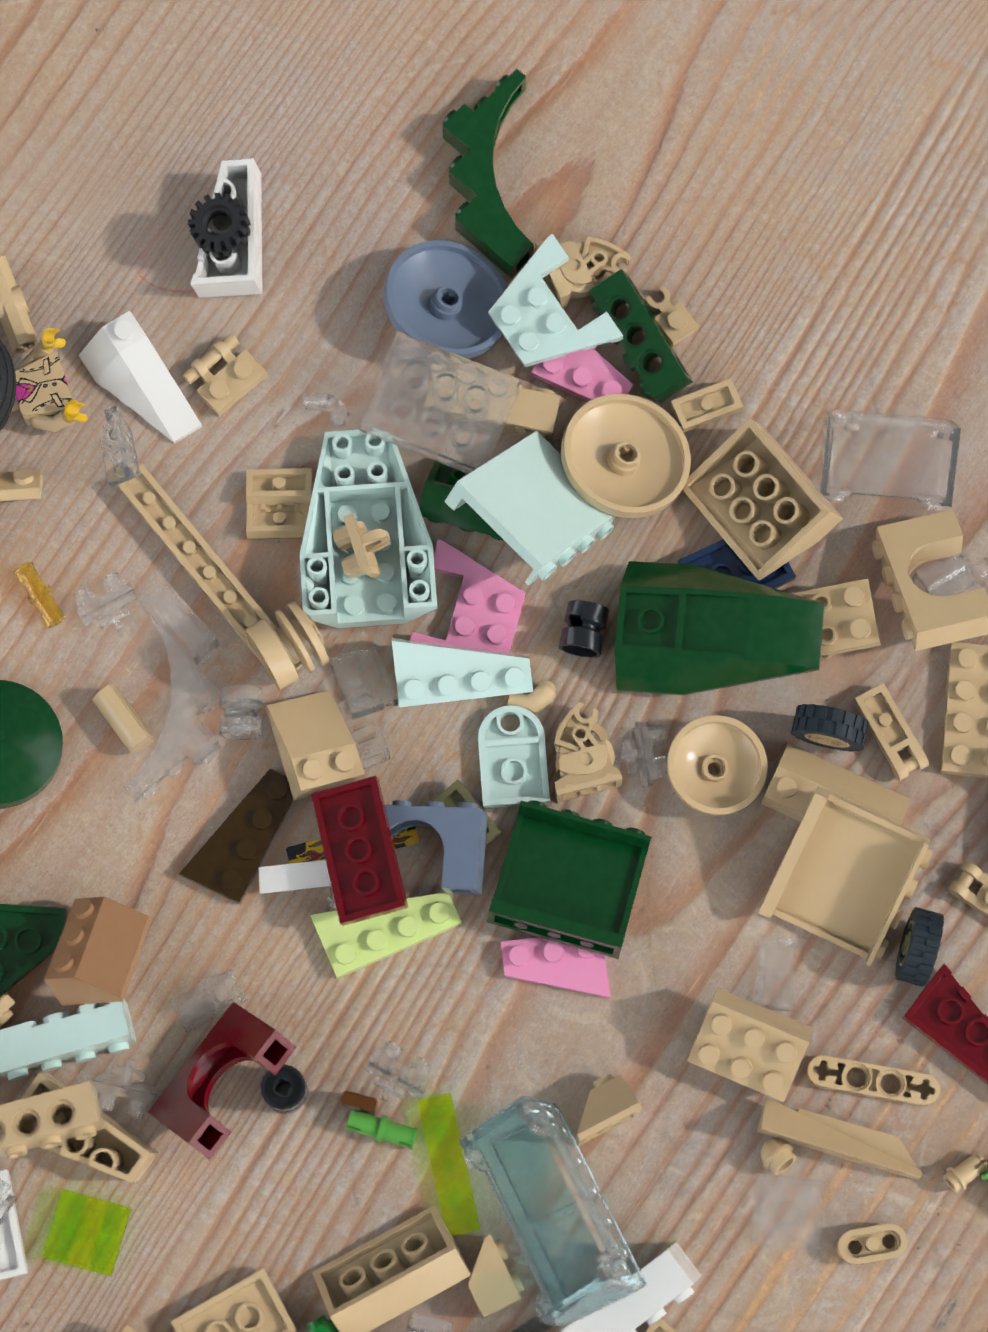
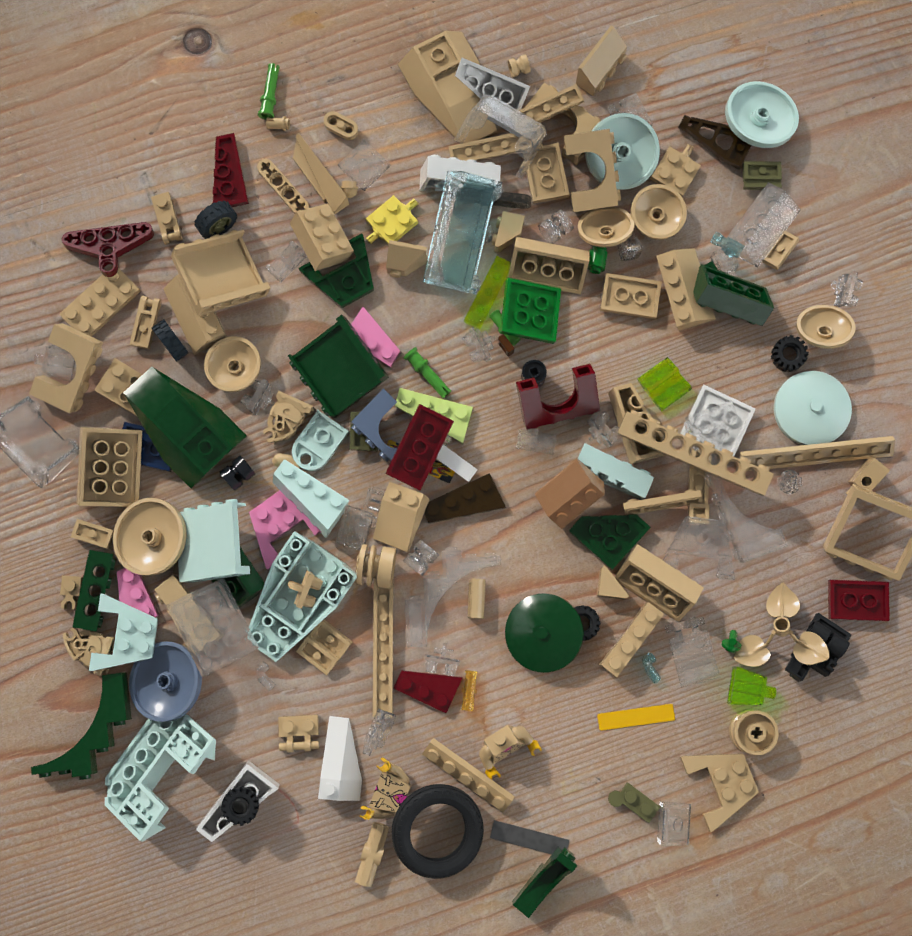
camera: 135 degrees left, 5 degrees up
(92, 556) = (429, 688): none -> dark red wing
(361, 1180) = (530, 311): none -> green plate
(389, 184) = (143, 766): none -> light aqua slope
(455, 976) = (421, 365): none -> bright green pin
(660, 1019) = (349, 280): none -> dark green wing
(675, 1159) = (392, 220): none -> light yellow plate

